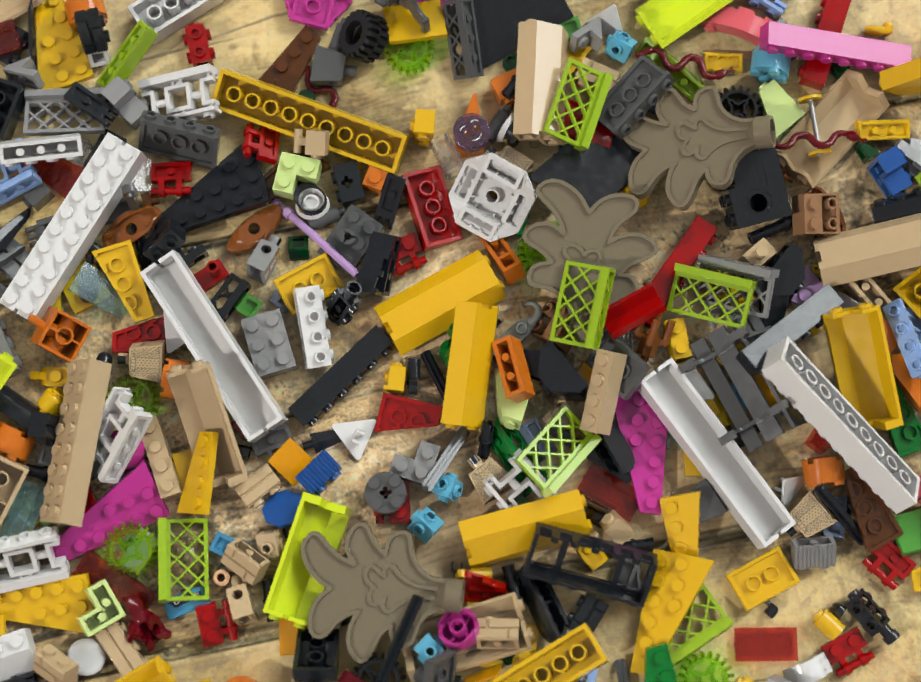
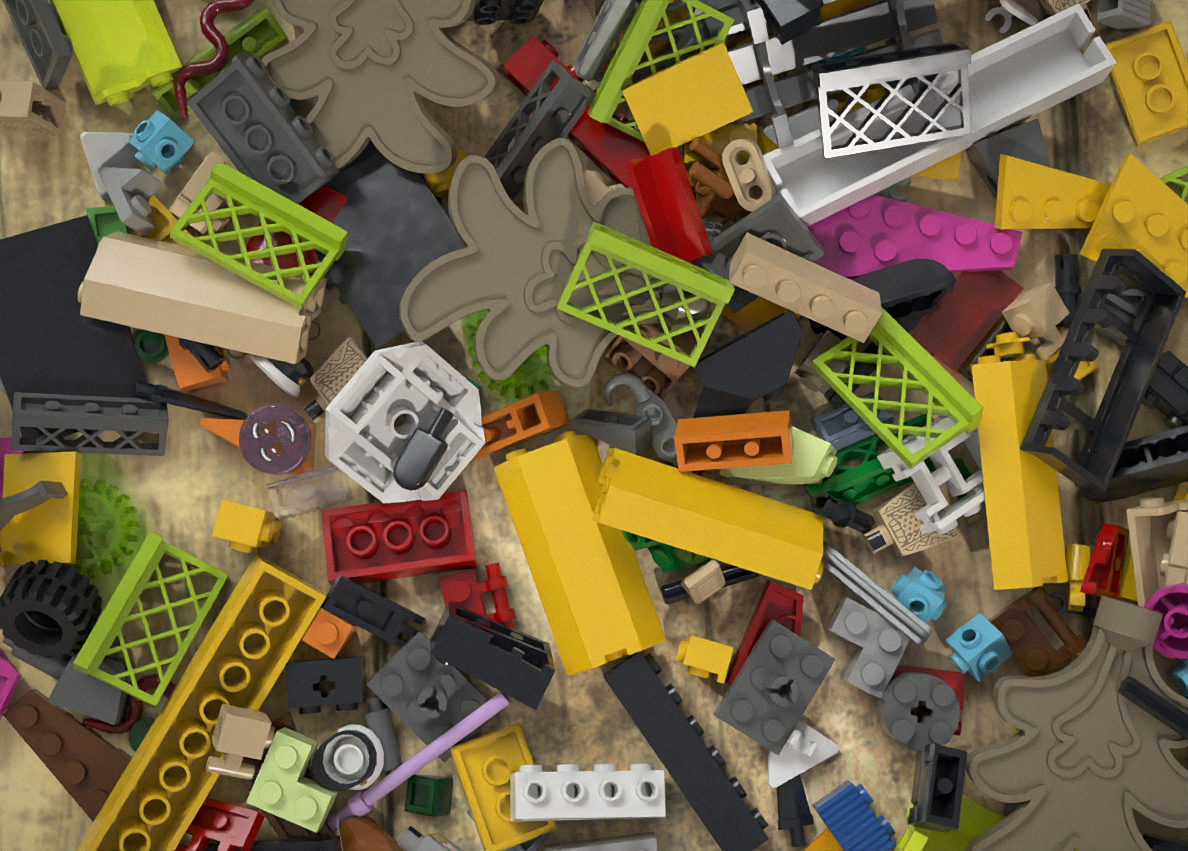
camera: 80 degrees left, 5 degrees up
(344, 303) = (553, 728): black brick -> none
(346, 505) = (938, 788): none -> black brick
(368, 71) = (122, 603): none -> lime fence
(385, 417) = (774, 687): none -> dark grey plate
(413, 374) = (701, 623): black bar -> none
(435, 367) = (703, 581): none -> tan slope
(435, 551) = (1027, 641): none -> reddish brown plate
(477, 208) = (422, 453): none -> black piece
(485, 82) = (163, 394): none -> black bar
(497, 122) = (261, 387): dark grey cylinder -> none
(509, 311) = (619, 430): none -> dark grey slope
(511, 580) = (1098, 511): black pin -> none
(595, 514) = (1008, 345): none -> yellow plate
(659, 352) = (746, 176): none -> tan plate
(673, 246) = (553, 119): none -> dark grey fence
(695, 313) = (687, 99): none -> yellow tile
(729, 410) = (891, 67): none -> fence

